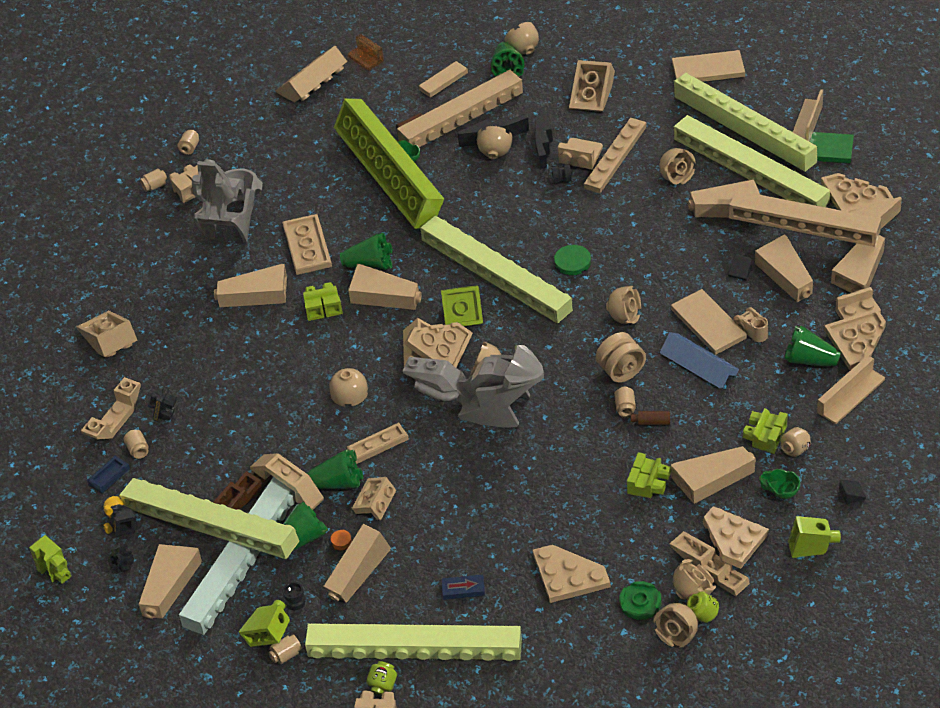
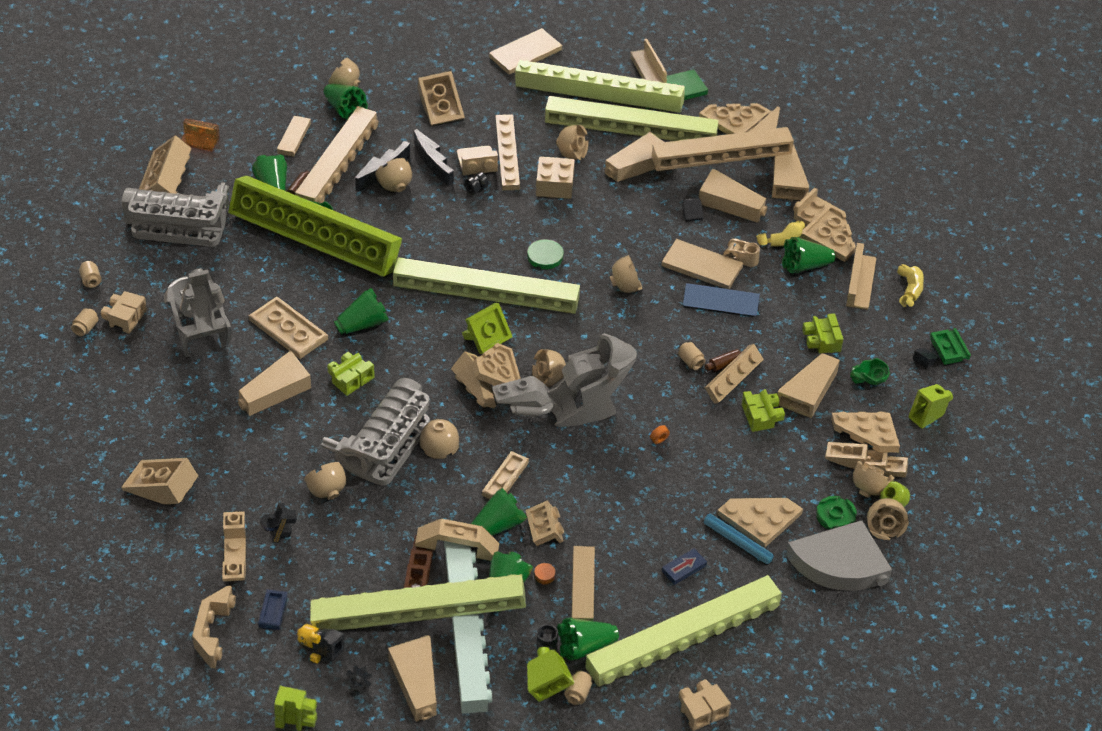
camera: 40 degrees left, 0 degrees up
(71, 450) = (217, 604): none -> tan slope
(136, 443) = (280, 569): tan brick -> none
(226, 385) = (326, 482): none -> tan cylinder
(290, 114) = (176, 214): none -> light grey piece
(303, 364) = (385, 434): none -> light grey piece
(324, 608) = (584, 637): none -> green cone
(381, 677) = (684, 672): lime head -> none
(382, 289) = (399, 341): tan slope -> none
(391, 106) = (271, 170): none -> green cone
(531, 584) = (738, 538): none -> dark azure axle
(536, 460) = (659, 434): none -> orange tile
(606, 642) = (841, 558): none -> light grey brick
(620, 357) = (664, 319): tan wheel -> none
(635, 192) = (555, 177): none -> tan brick
(650, 433) = (734, 373): none -> tan plate
(795, 441) = (854, 334): tan head -> none
(813, 322) = (792, 230): none -> light yellow arm
(883, 490) = (950, 346): none -> green plate
(900, 414) = (915, 284): none -> light yellow arm

